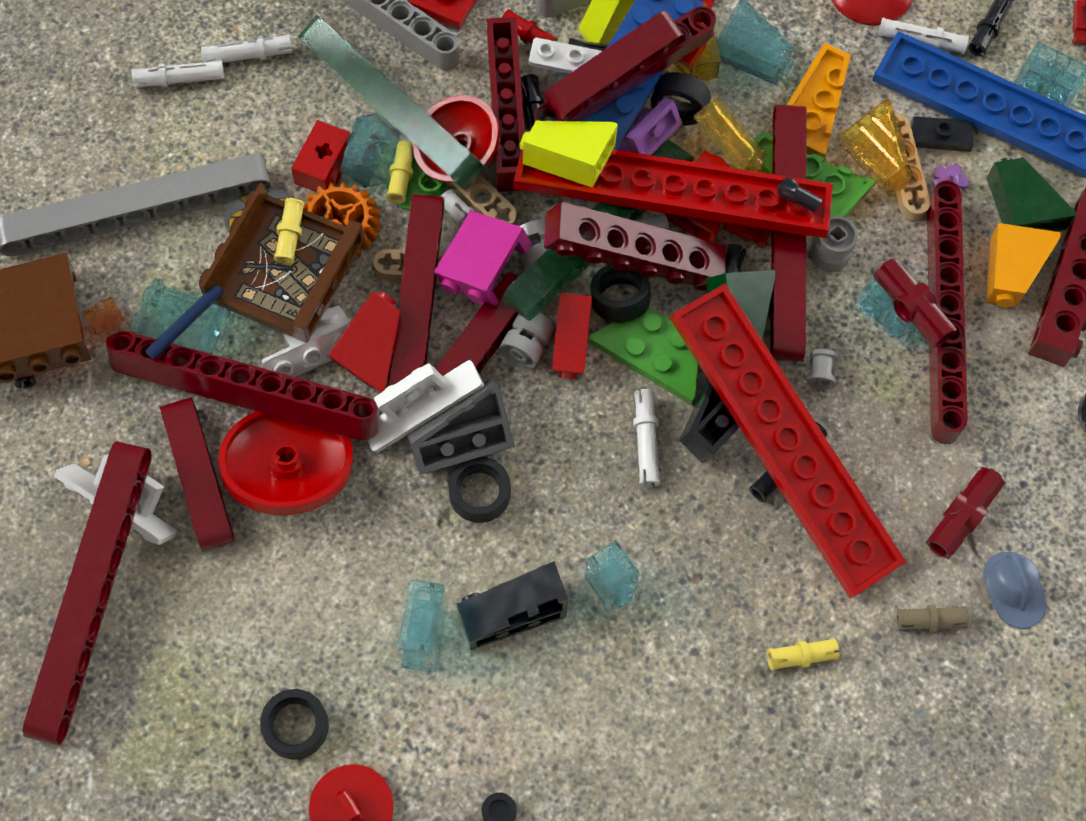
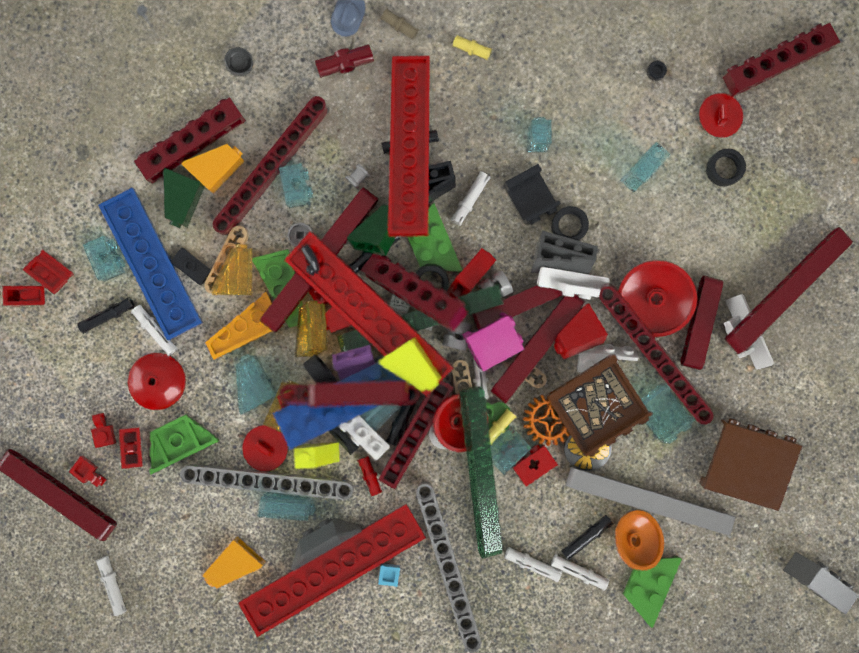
camera: 150 degrees left, 20 degrees up
(71, 113) = (649, 588): none -> bright green wing
(104, 317) = (703, 438): clear orange piece -> none
(105, 142) = (639, 540): none -> orange dish
(184, 321) = (669, 401): dark blue bar -> none
(189, 127) = (593, 532): none -> black pin
(289, 231) = (585, 420): light yellow pin -> none
(513, 606) = (593, 154): black wedge -> none
(561, 497) = (531, 195): none -> black panel
(914, 302) = (290, 171): dark red piece -> none
(952, 173) = (207, 238): medium lavender plant -> none

